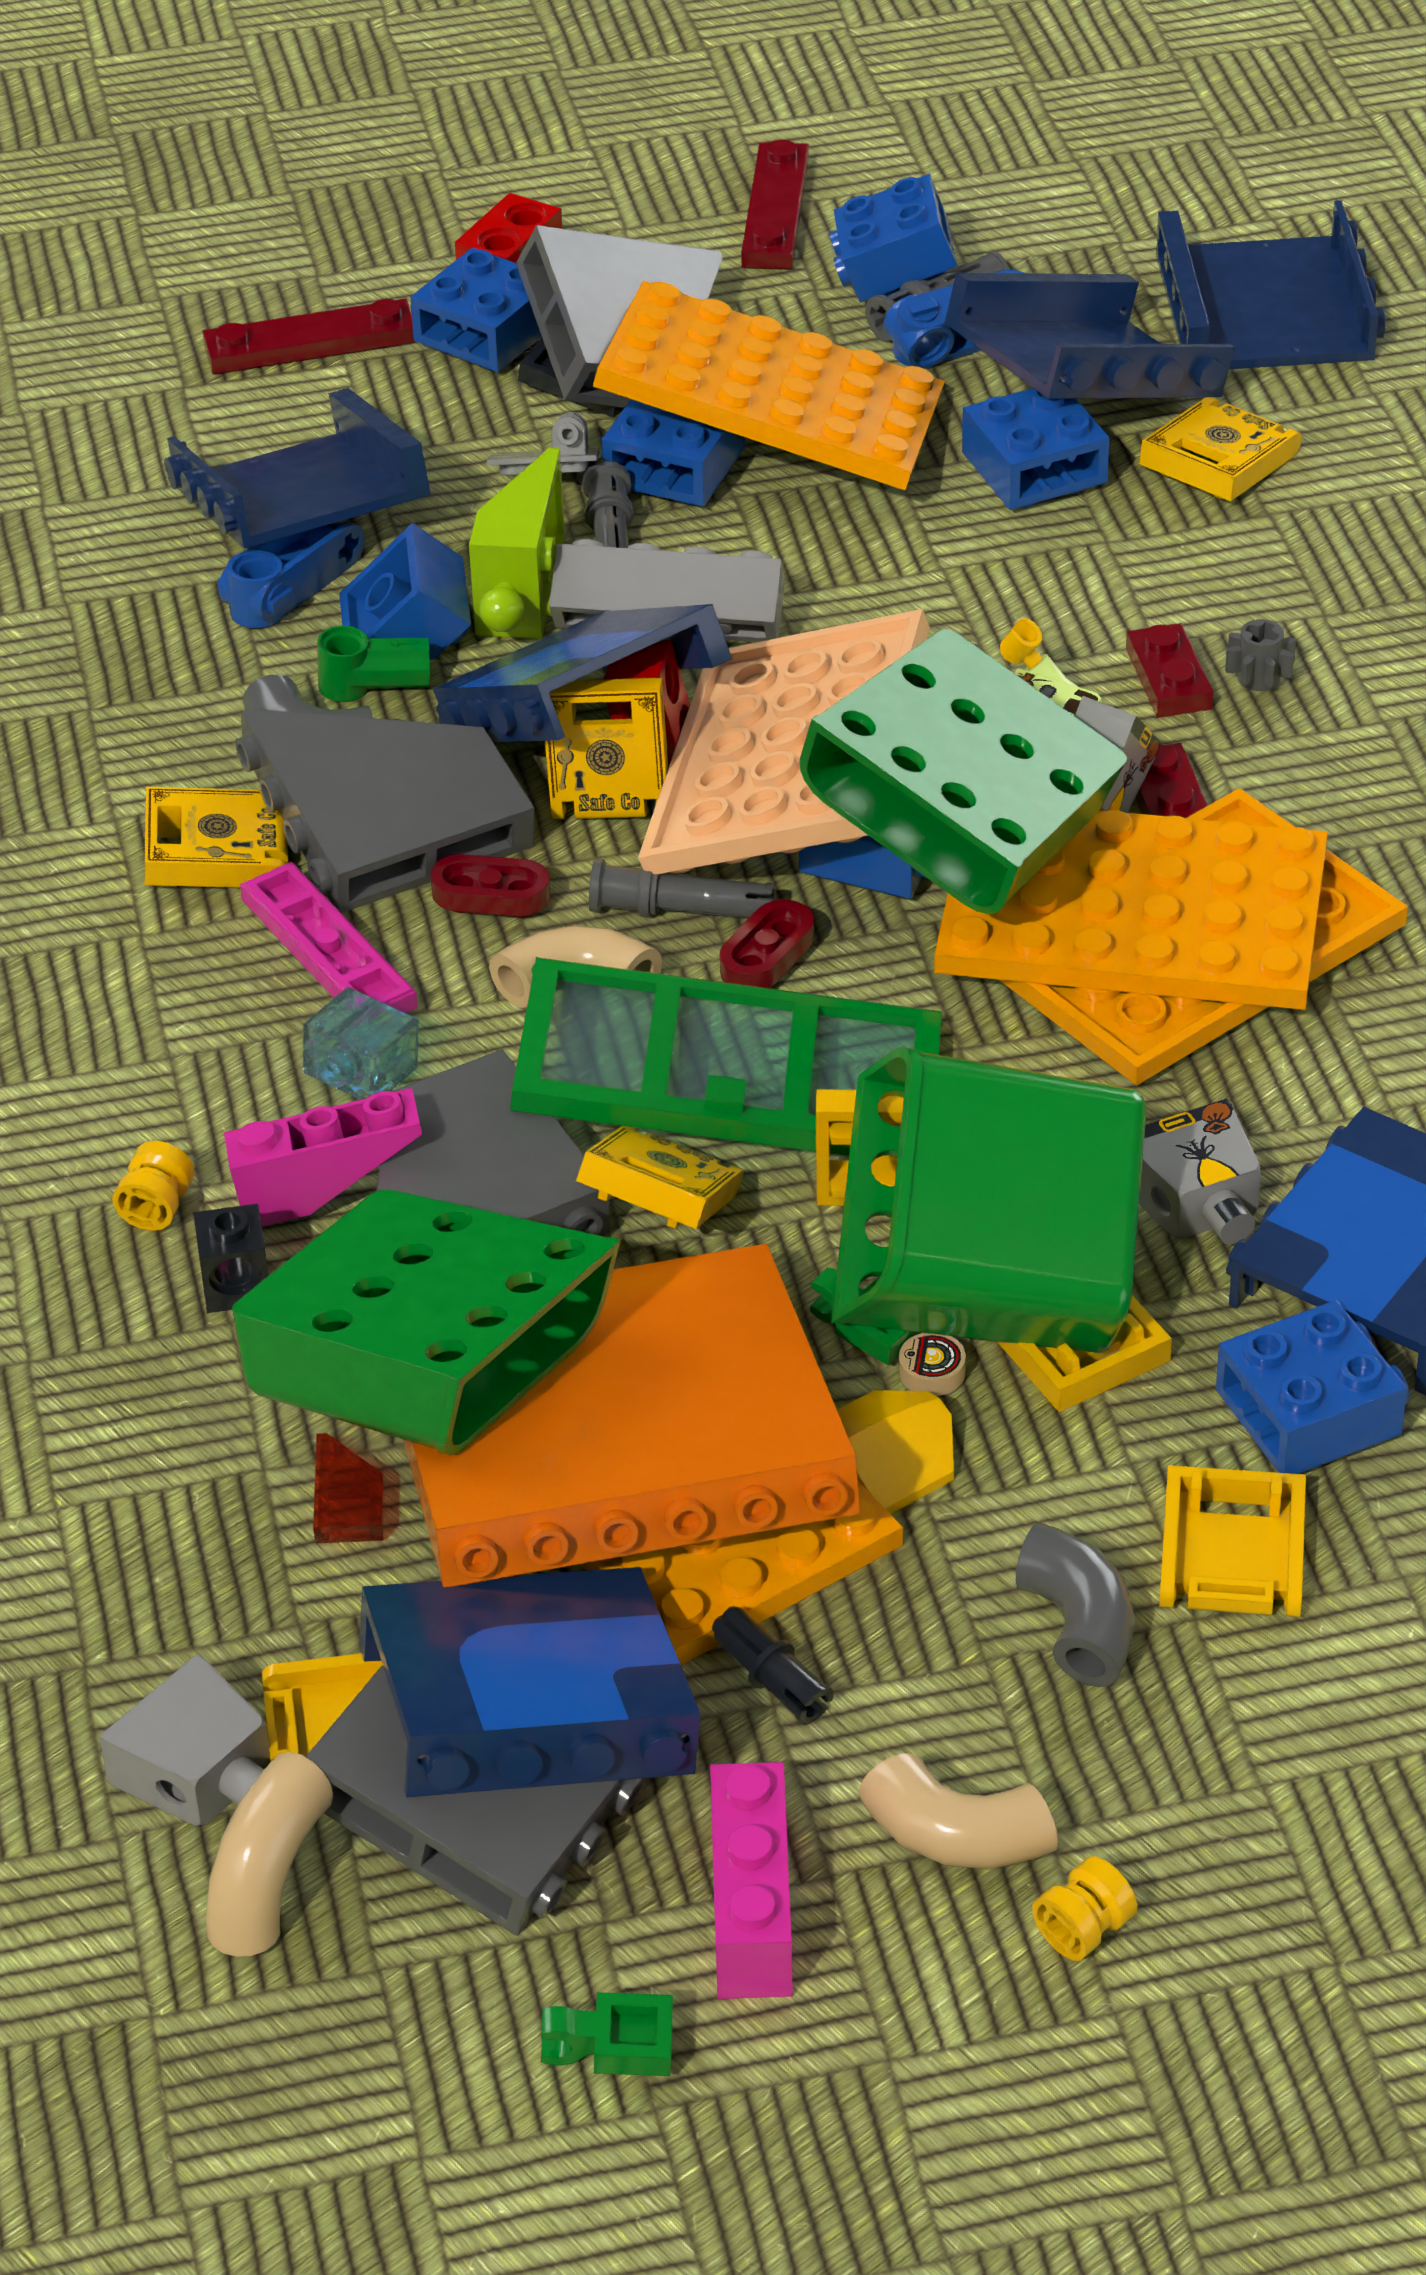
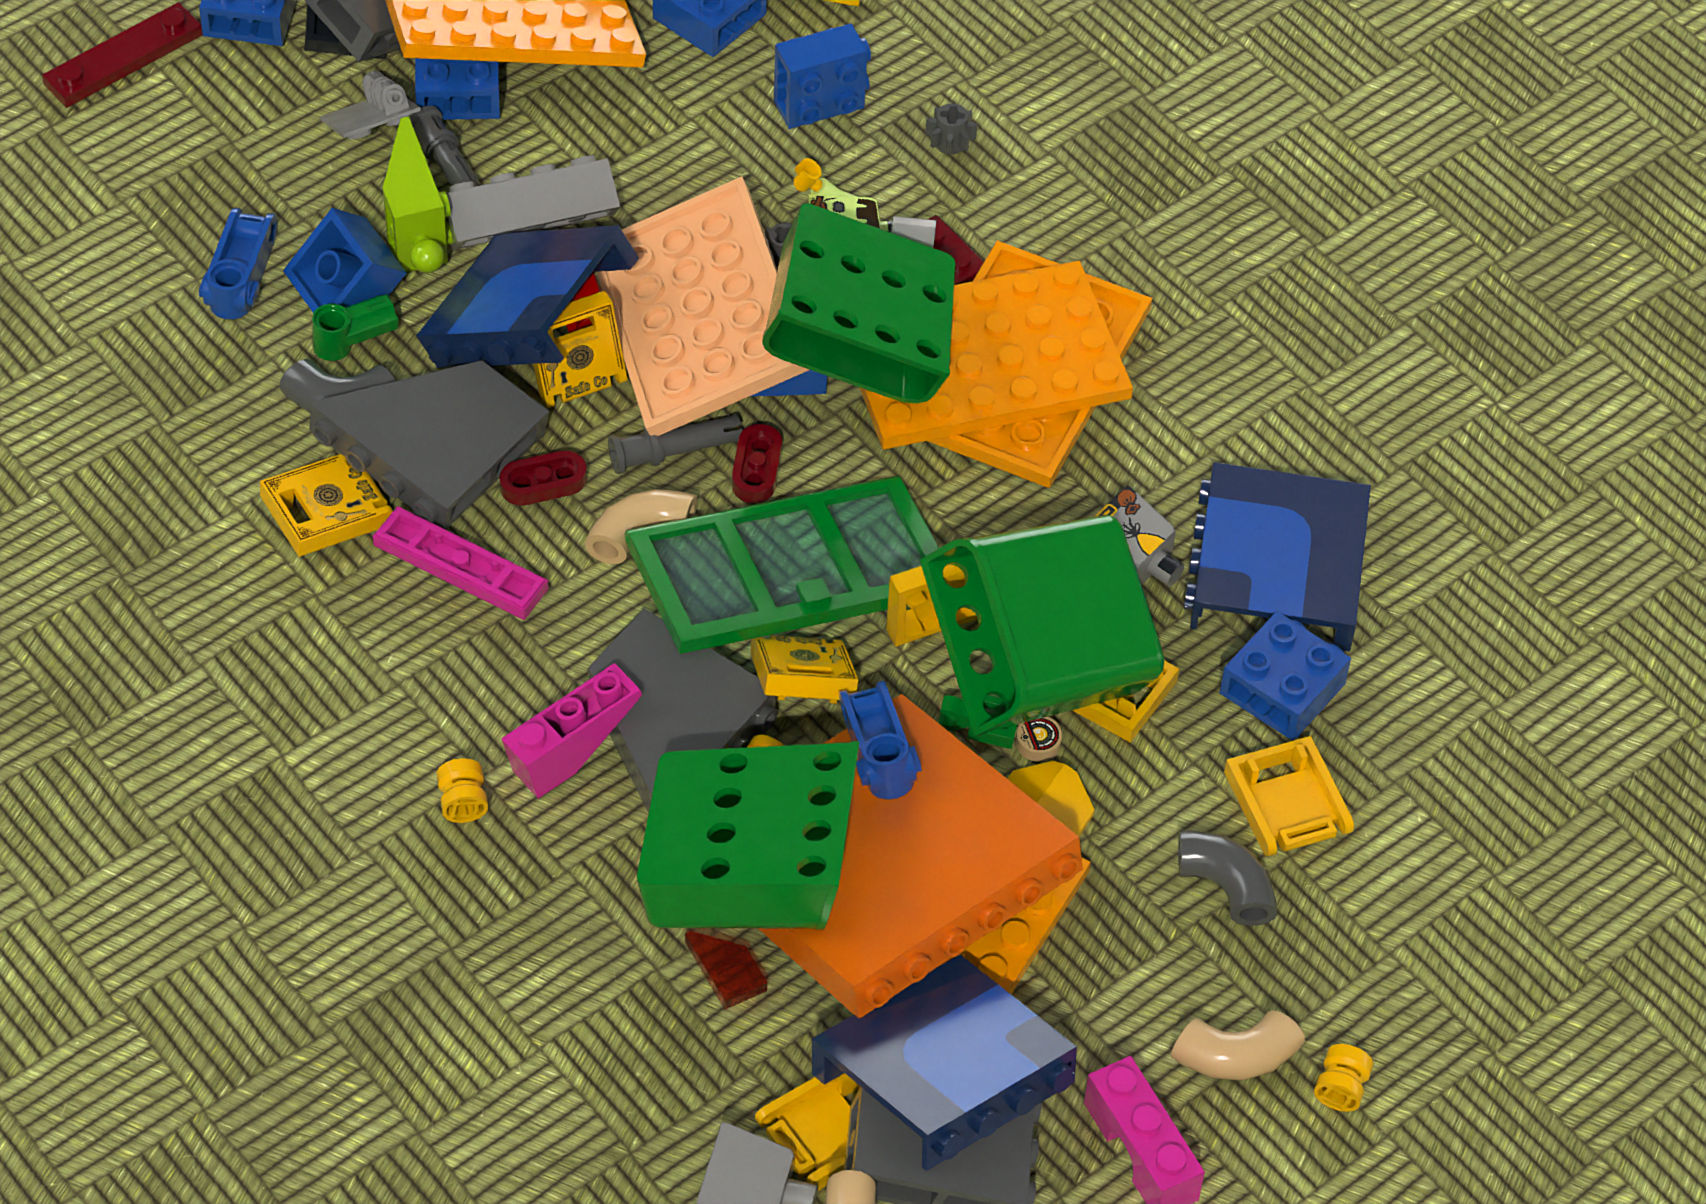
camera: 30 degrees left, 10 degrees up
(230, 1254) = (553, 826): black brick -> none
(309, 484) = (214, 184): dark blue panel -> none
(360, 1045) = (536, 635): clear light blue head -> none
(681, 1275) = (884, 755): none -> blue piece
(772, 1665) = (1065, 986): black axle -> none
(1120, 549) = (821, 75): none -> blue brick
(1169, 670) = (892, 157): dark red plate -> none

